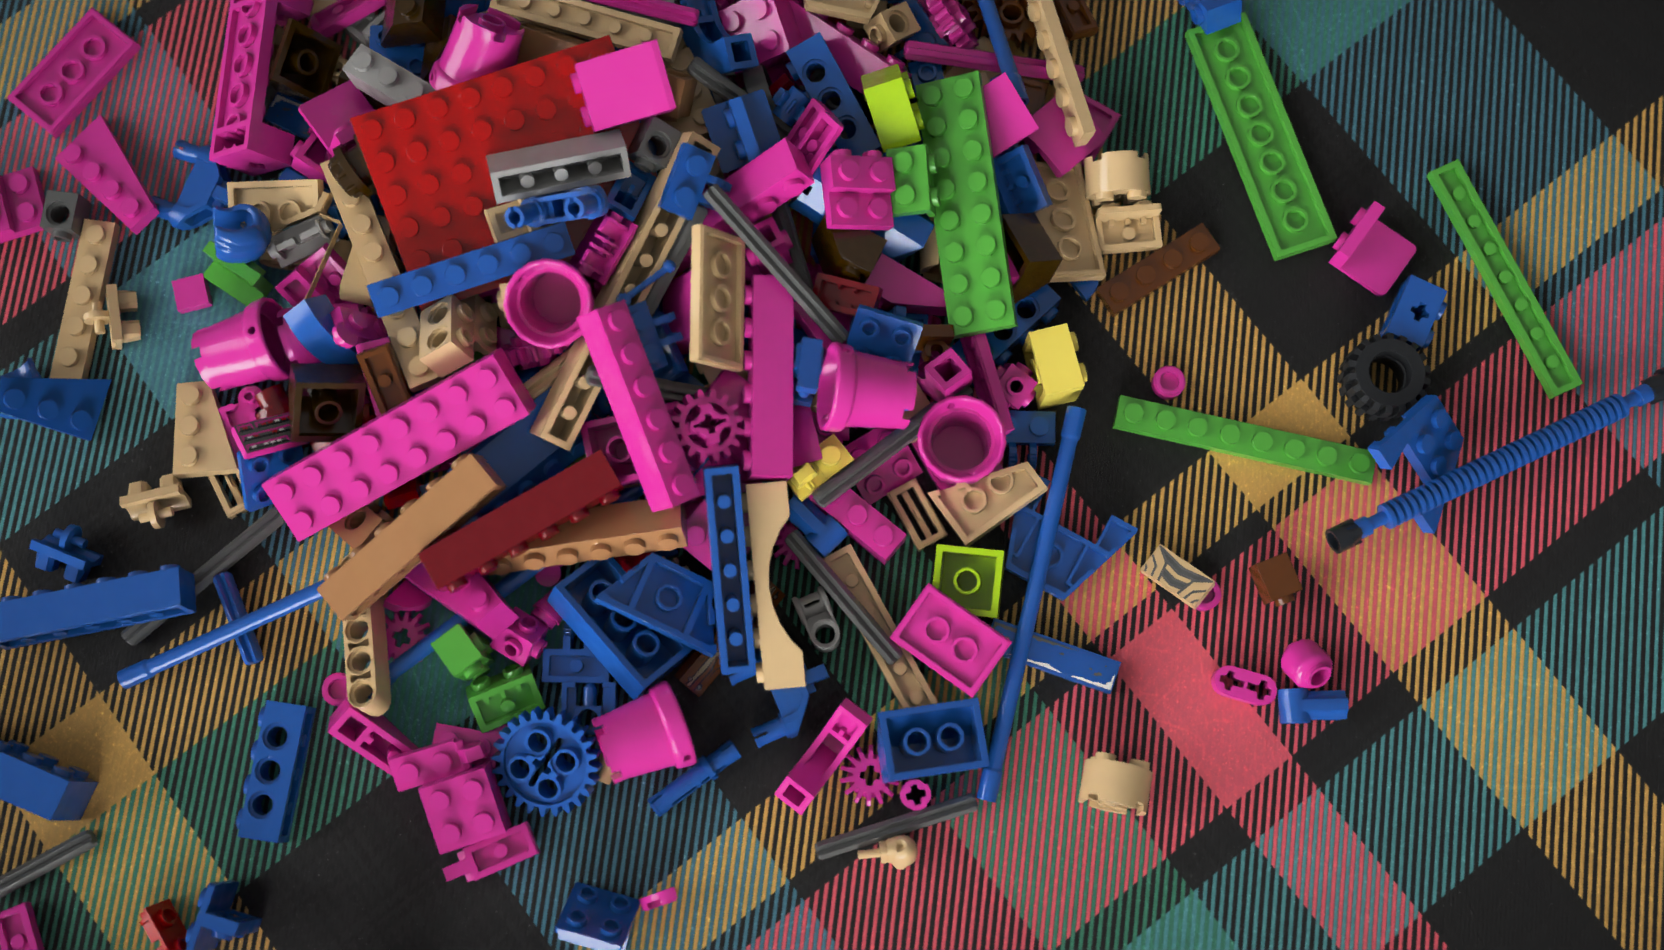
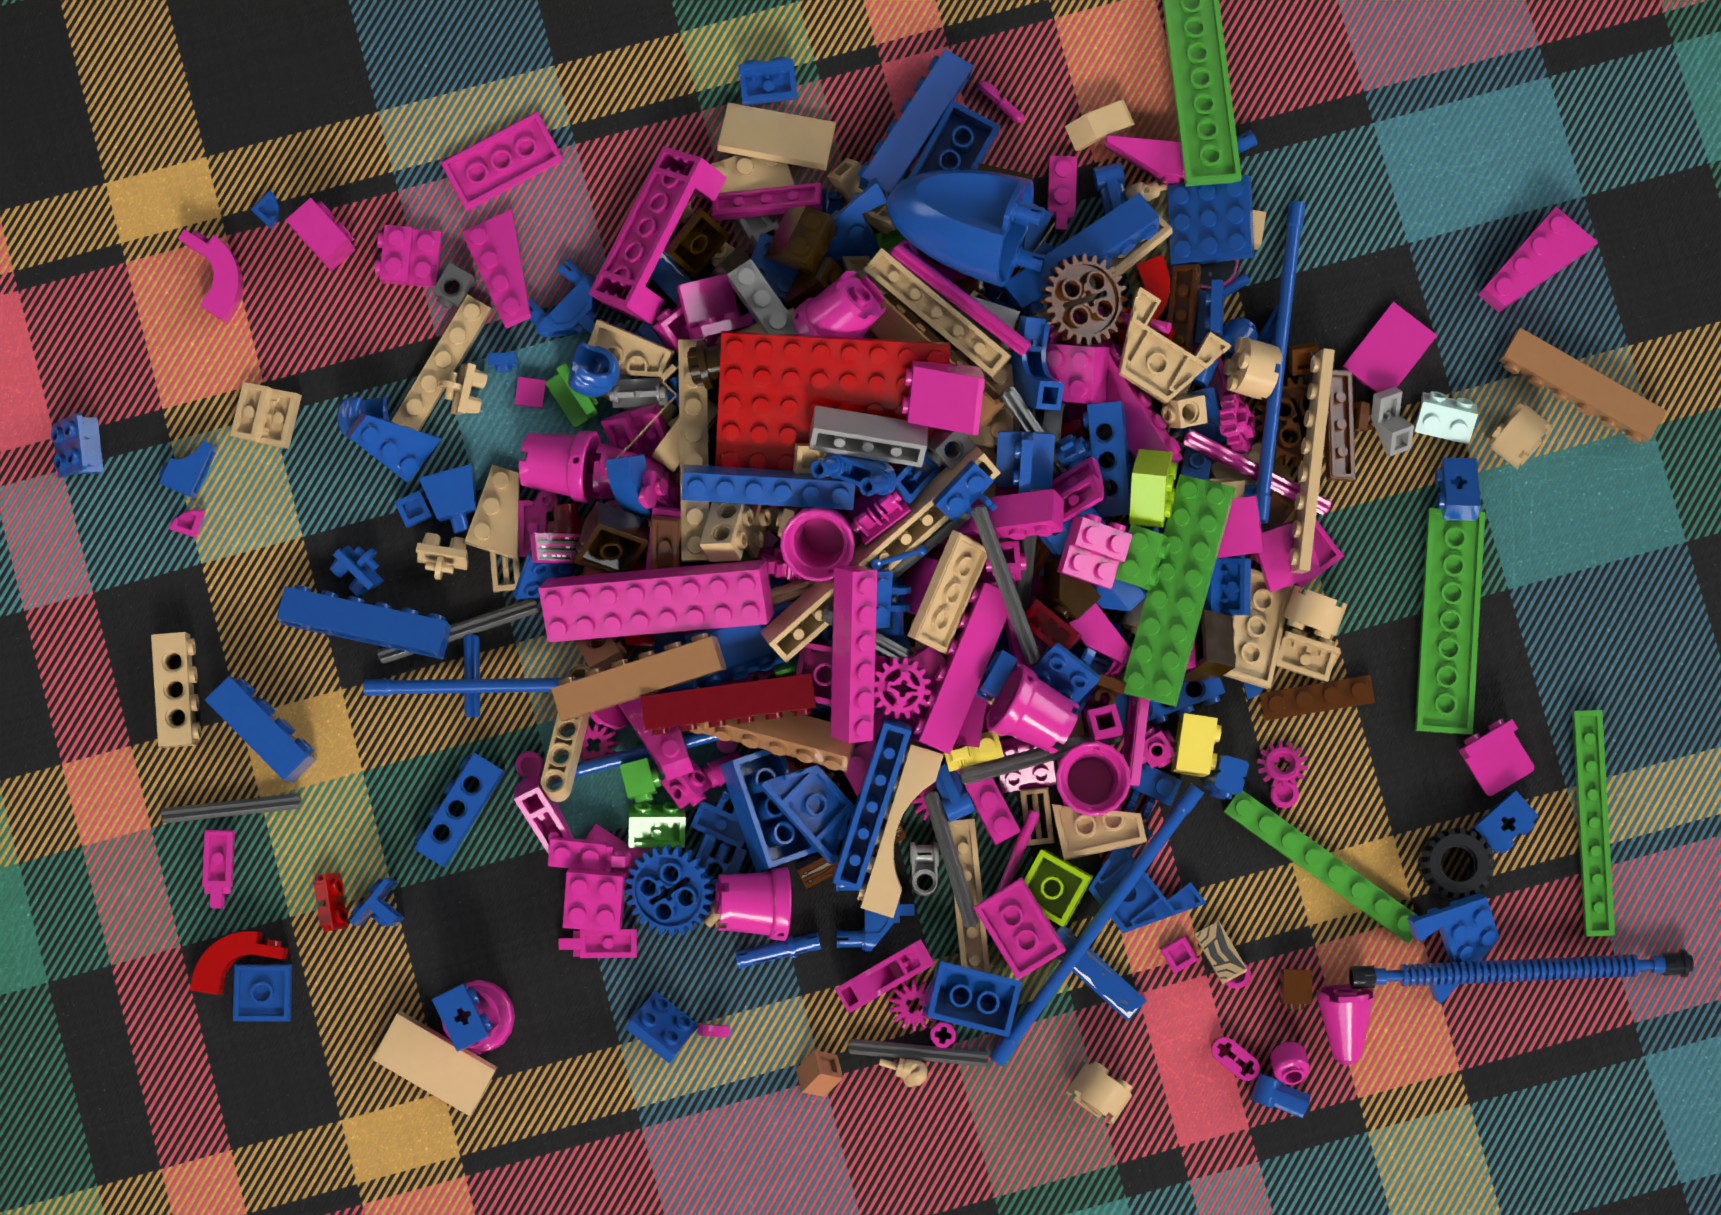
camera: 20 degrees right, 5 degrees up
(106, 465) = (413, 509): none -> blue plate
(142, 432) = (452, 495): none -> blue torso
(147, 271) = (503, 361): none -> blue plate
(796, 897) = (819, 1073): none -> nougat panel
(912, 555) = (1019, 849): none -> dark pink bar
(1103, 386) = (1227, 777): none -> blue brick
(1133, 598) = (1179, 954): none -> dark pink tile
(1156, 340) = (1290, 757): none -> dark pink gear
(1345, 591) = (1346, 1019): none -> dark pink cone

